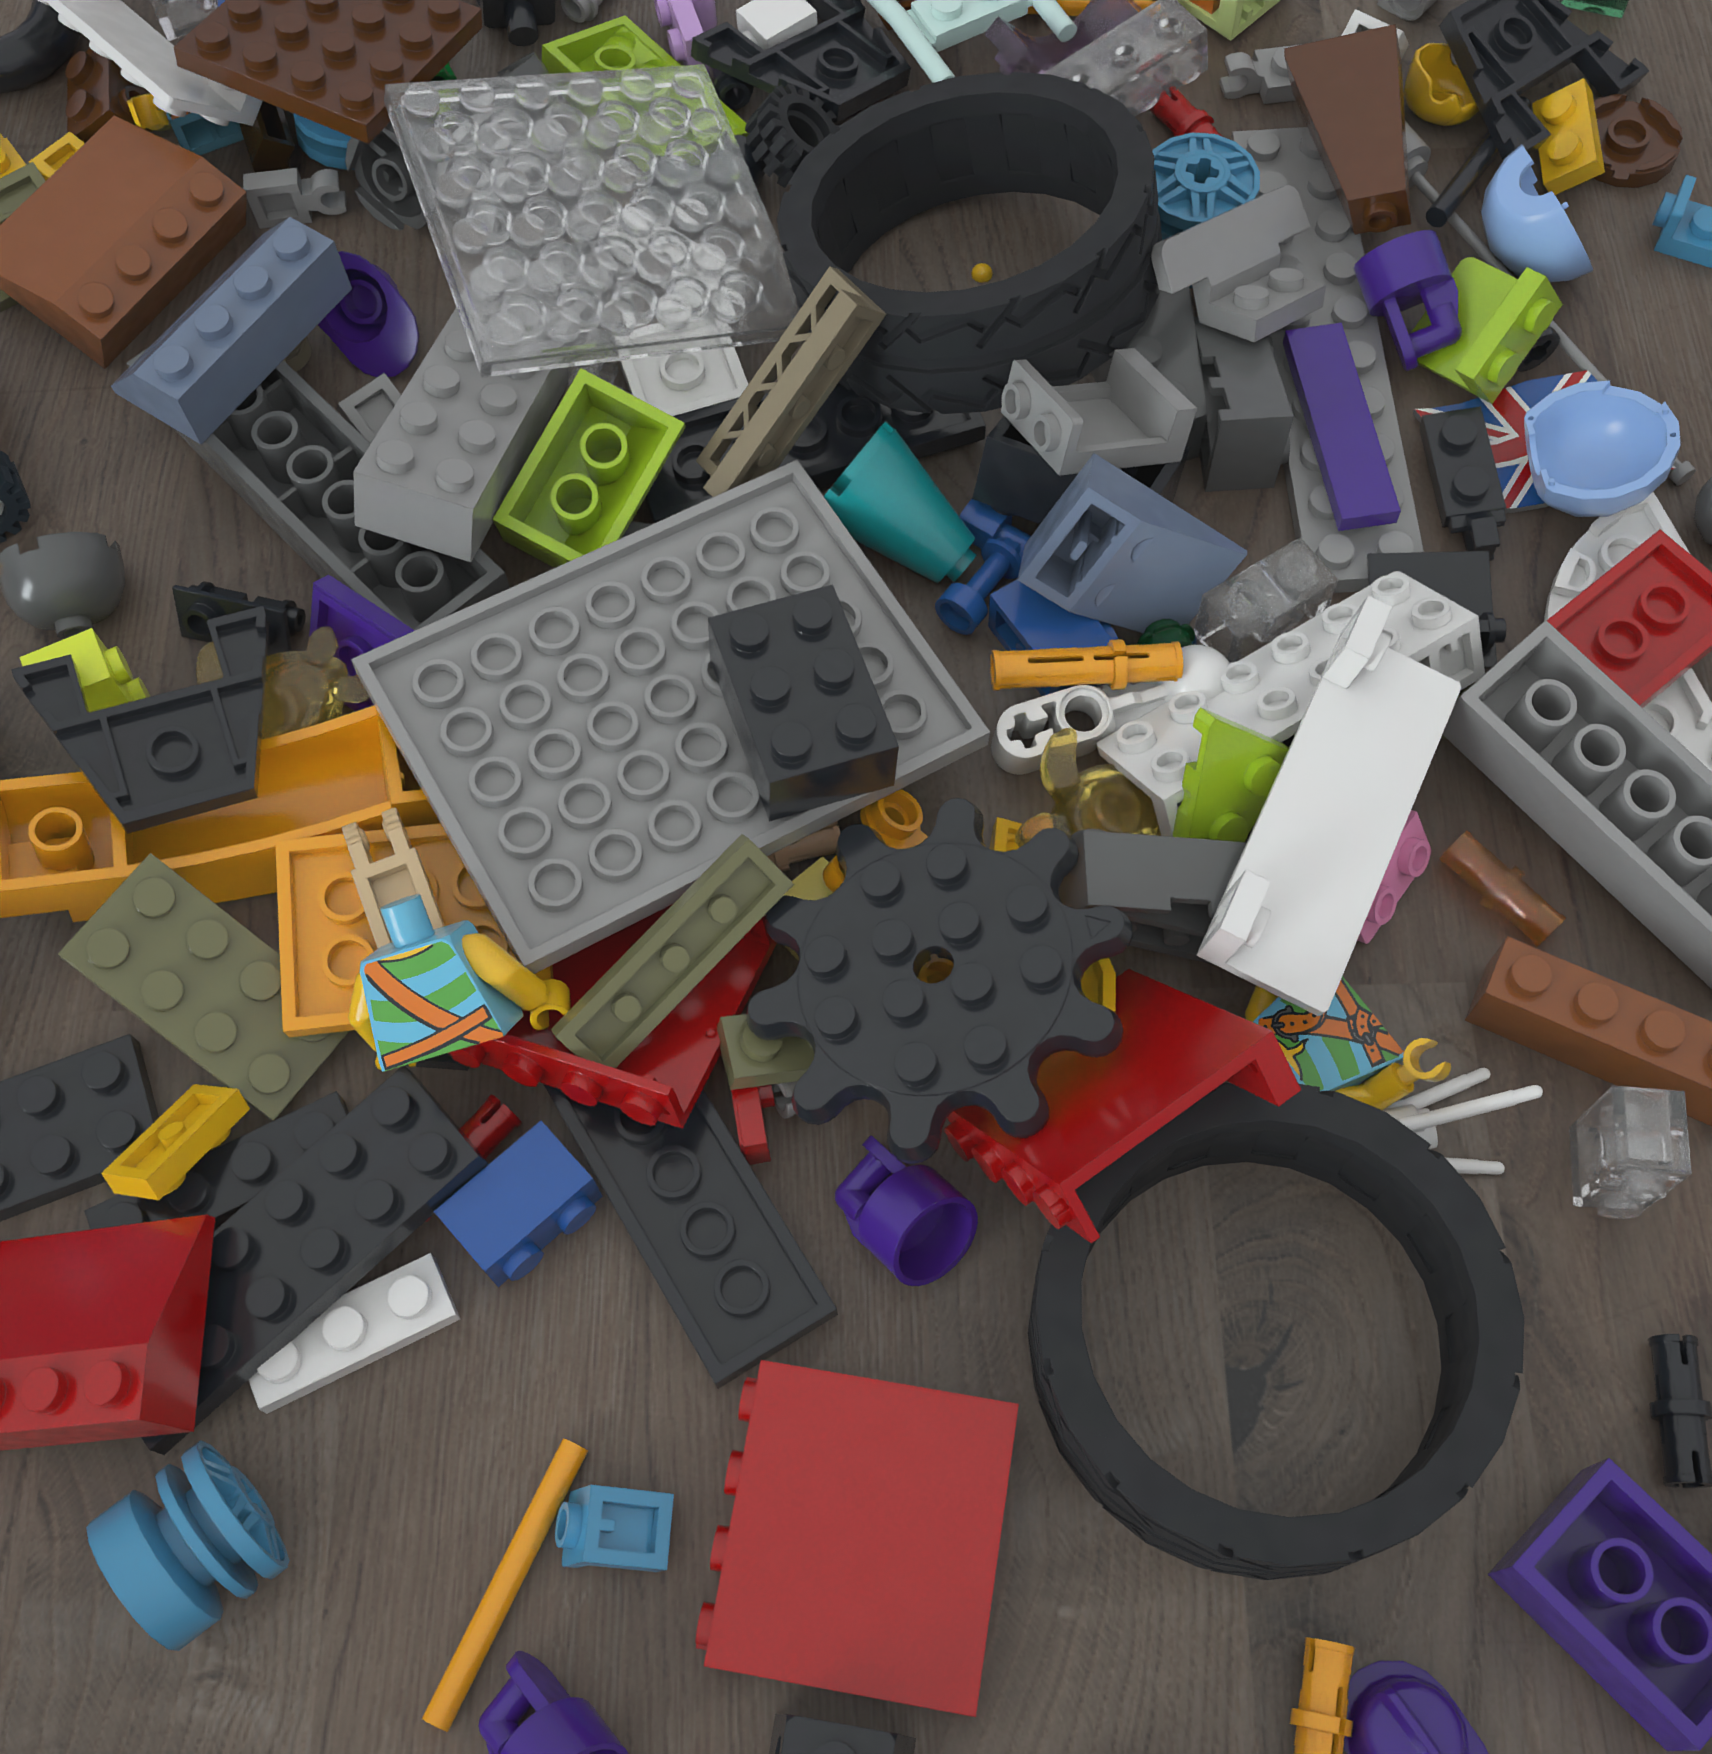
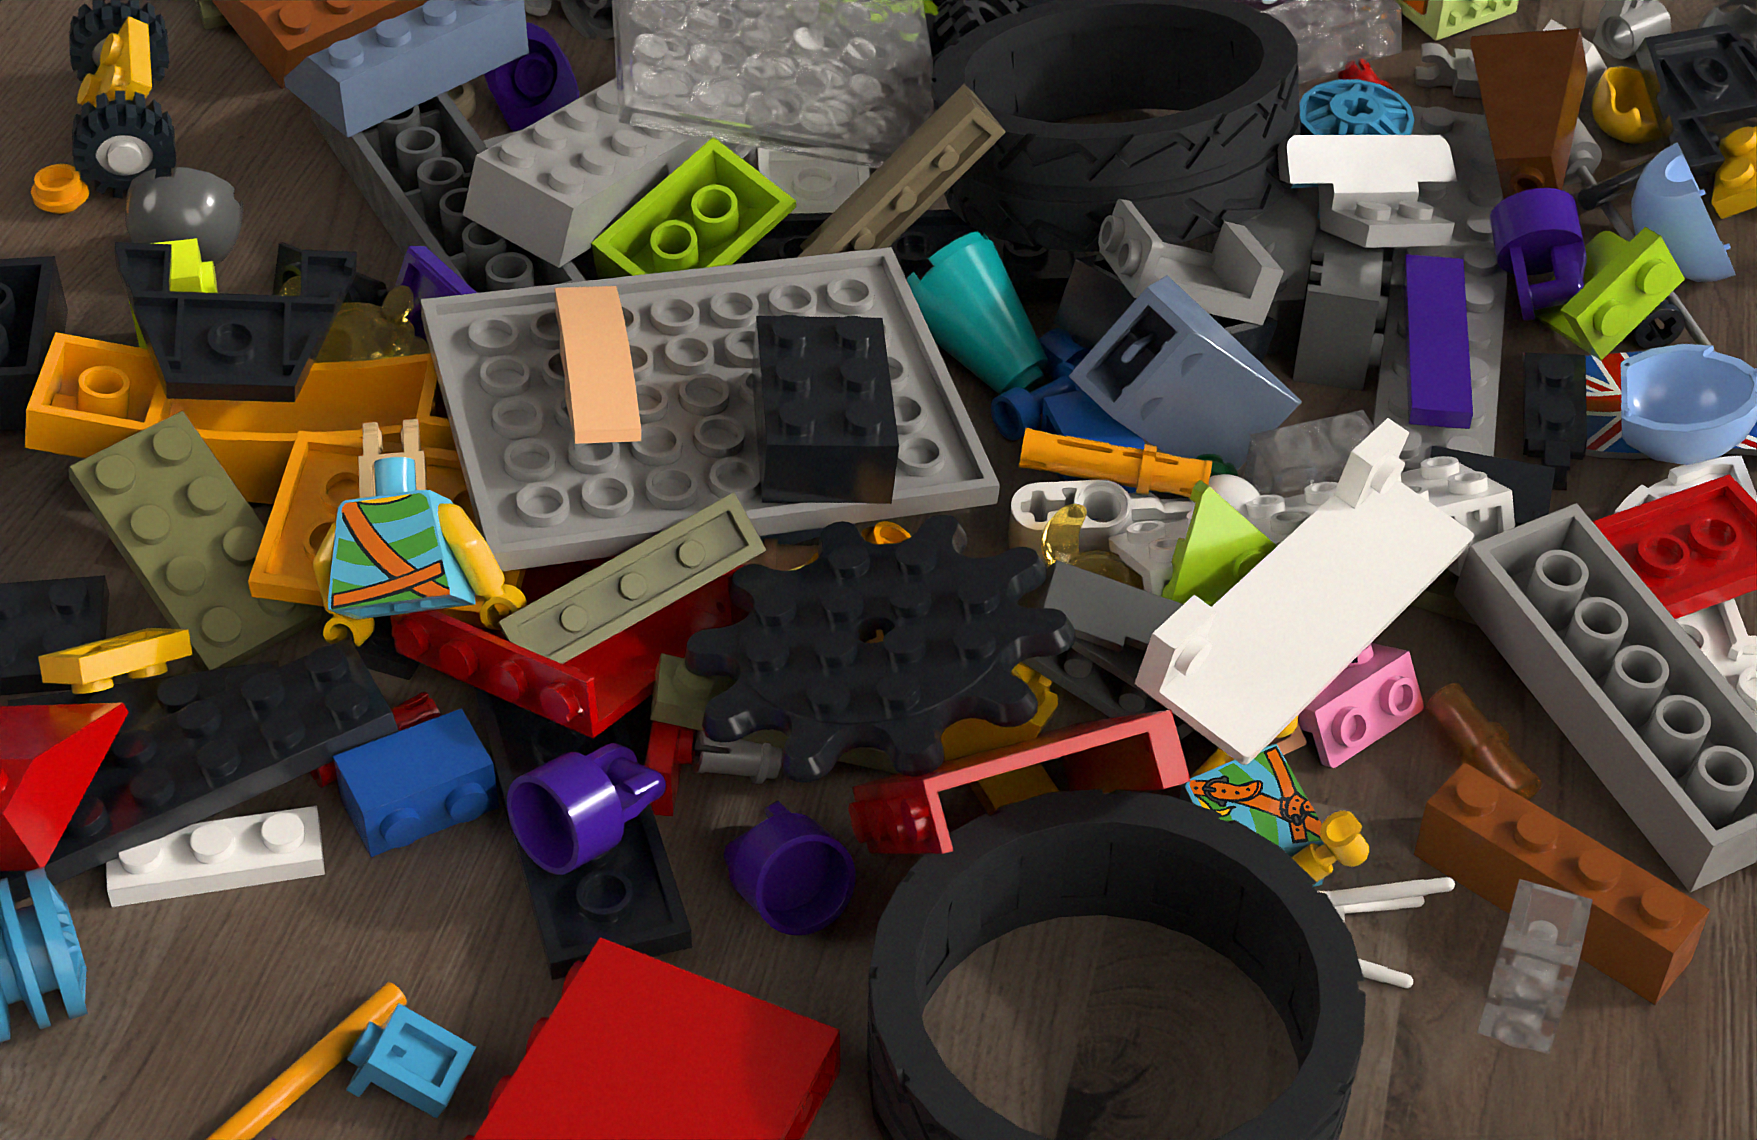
camera: 10 degrees right, 20 degrees down
(561, 710) = (597, 365): none -> light nougat slope
(690, 1228) = (579, 805): none -> dark purple piece

